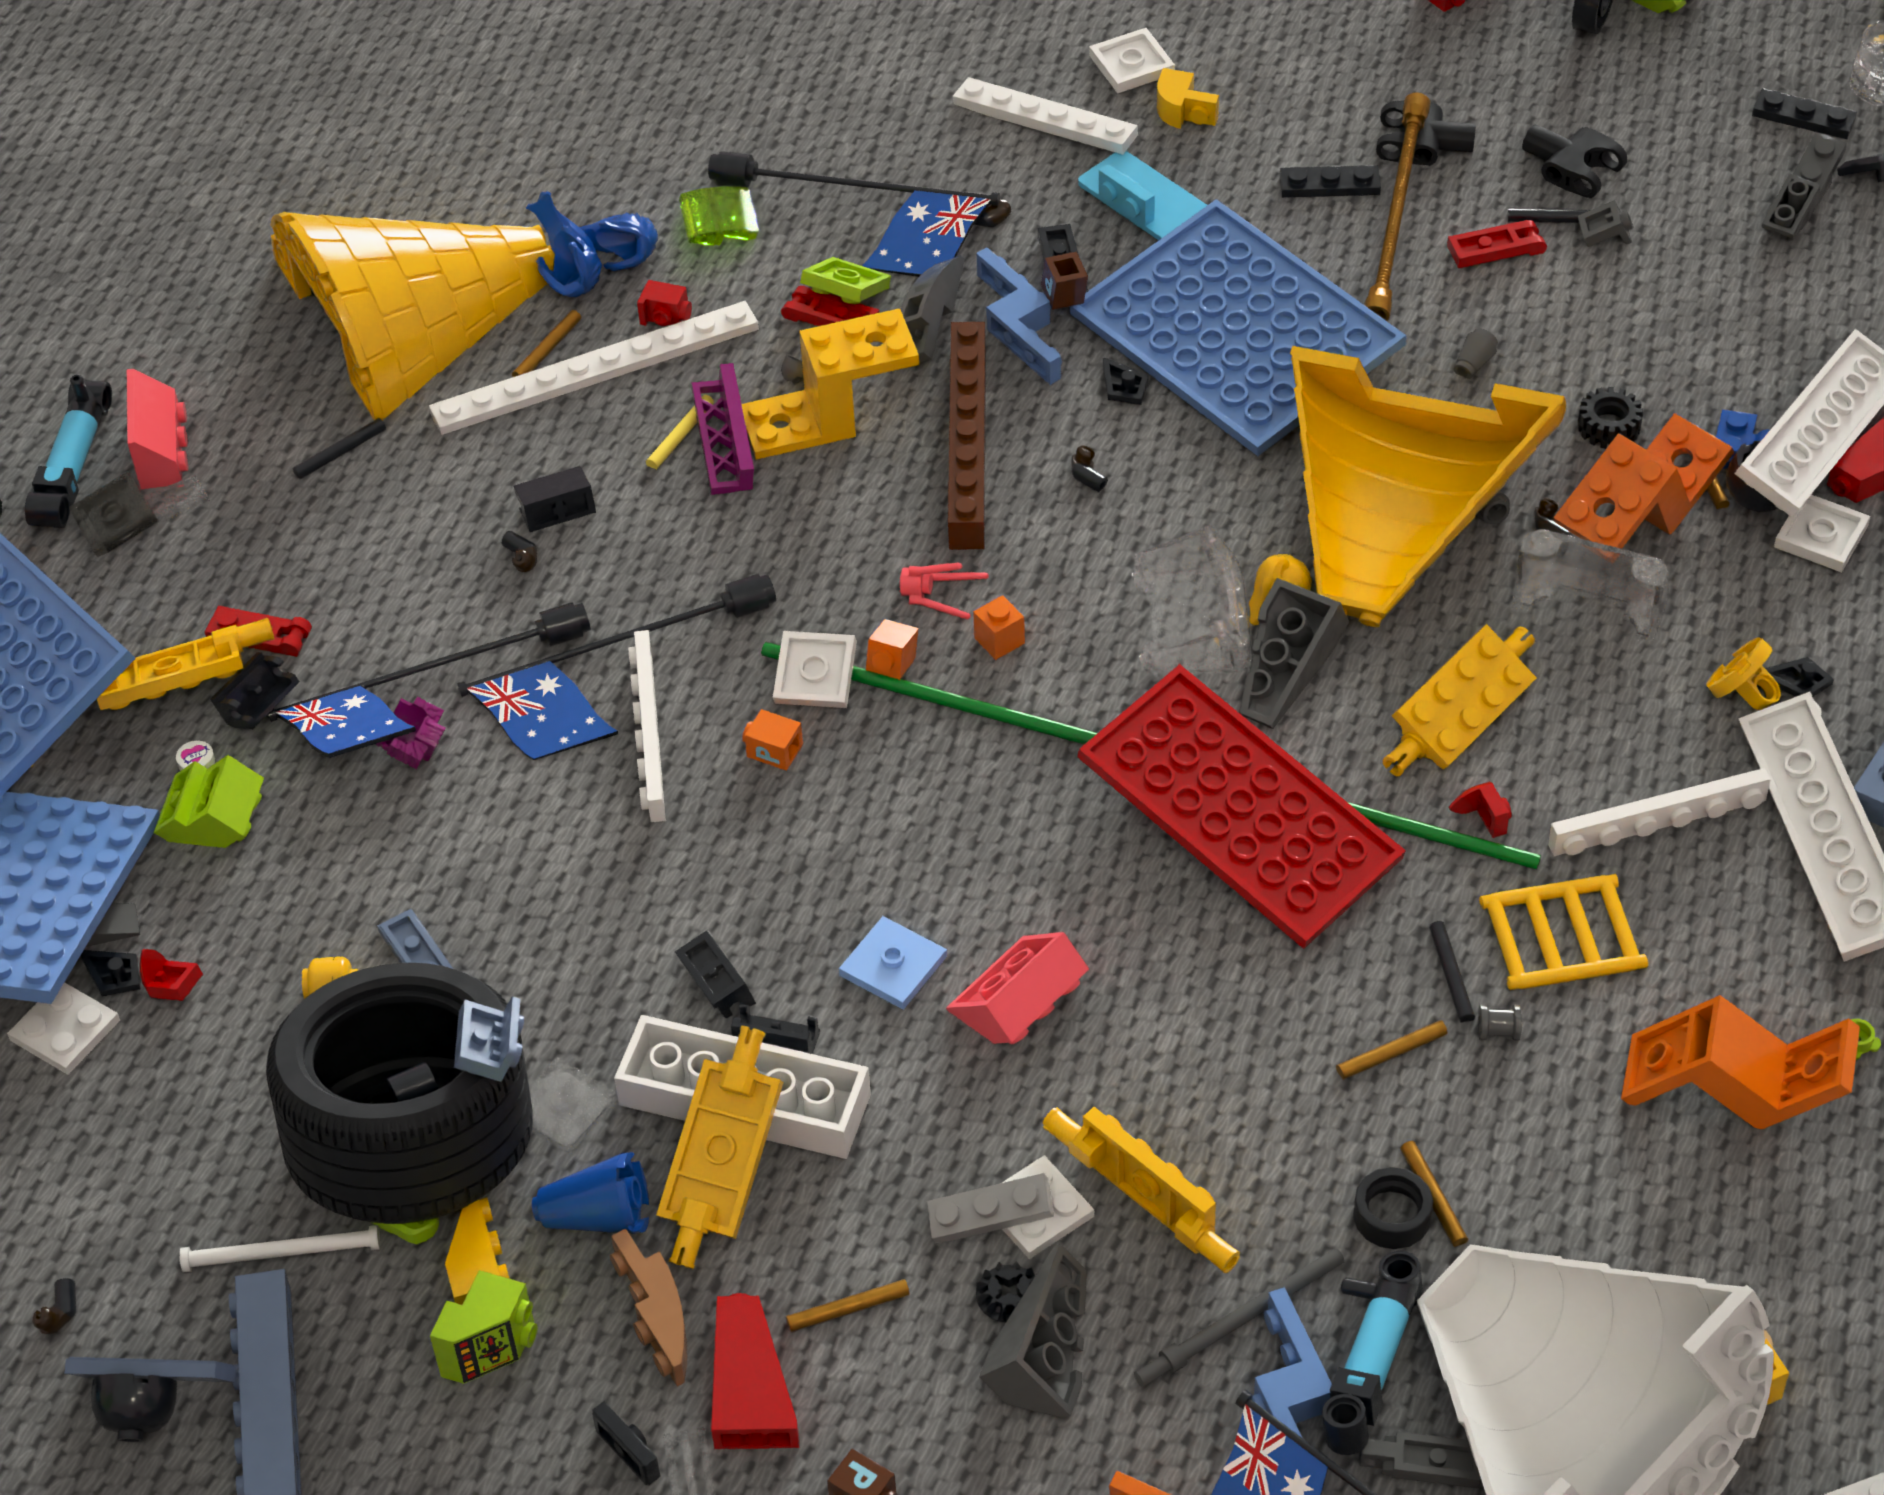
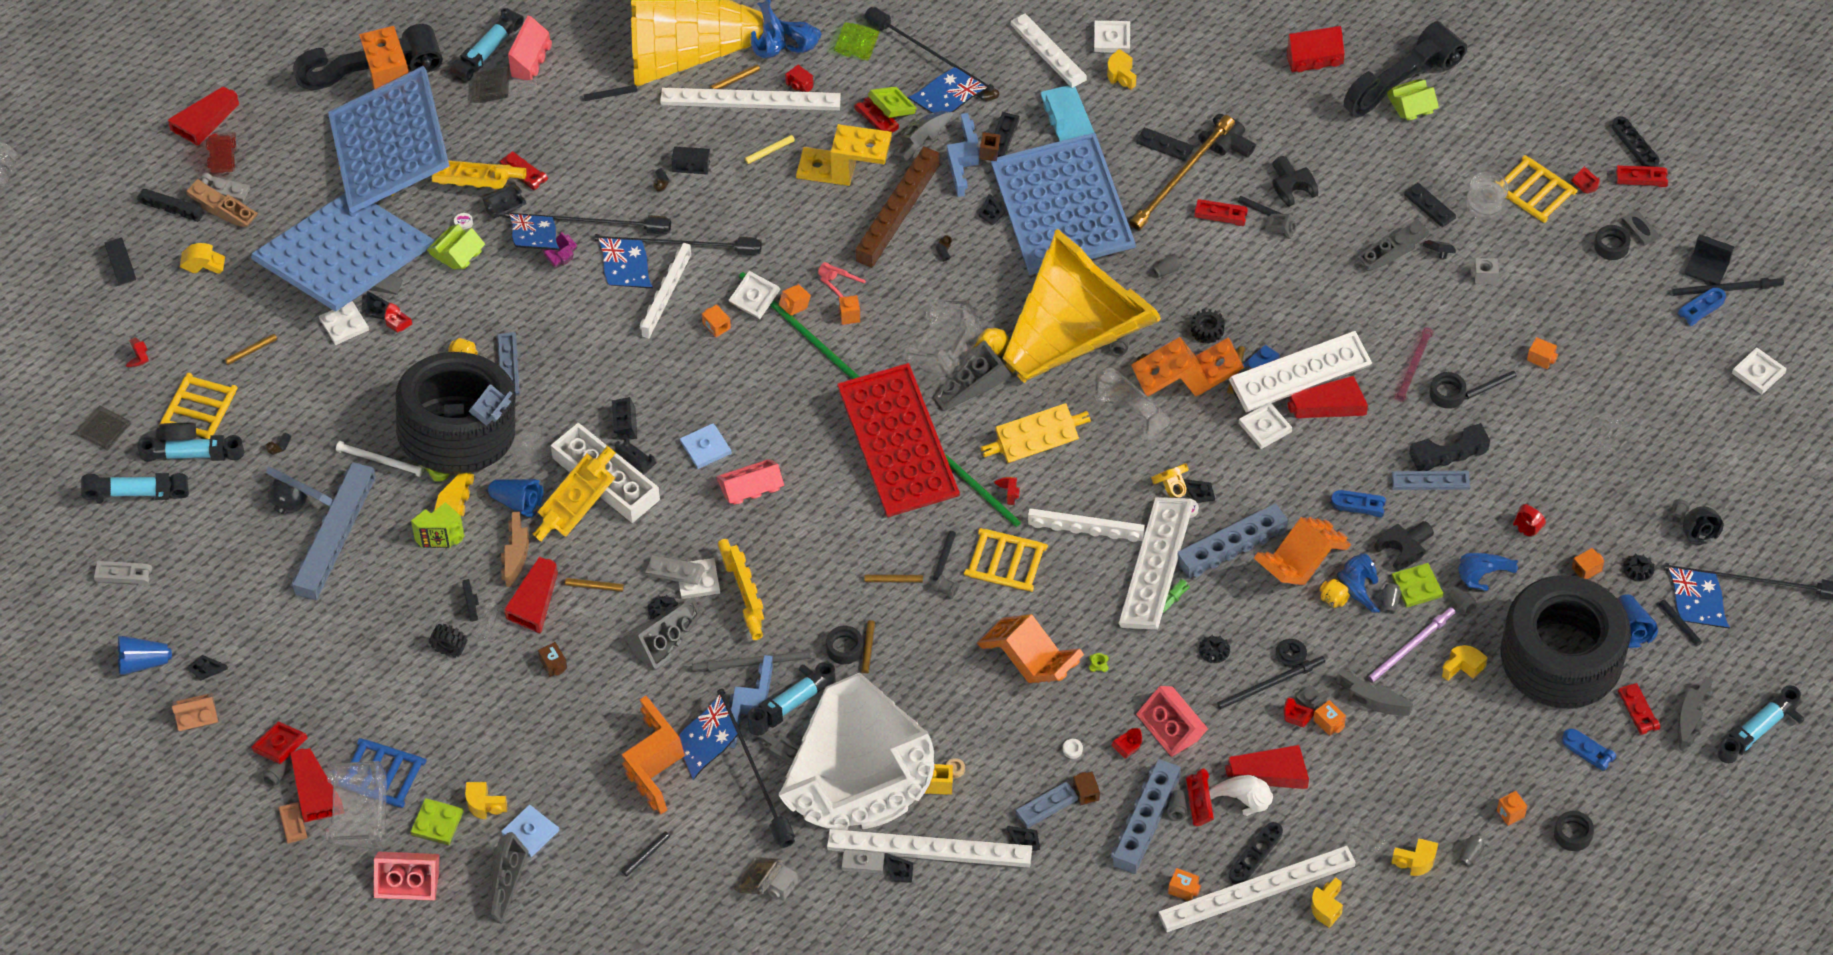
camera: 25 degrees right, 5 degrees up
(735, 428) = (790, 161): magenta fence -> none

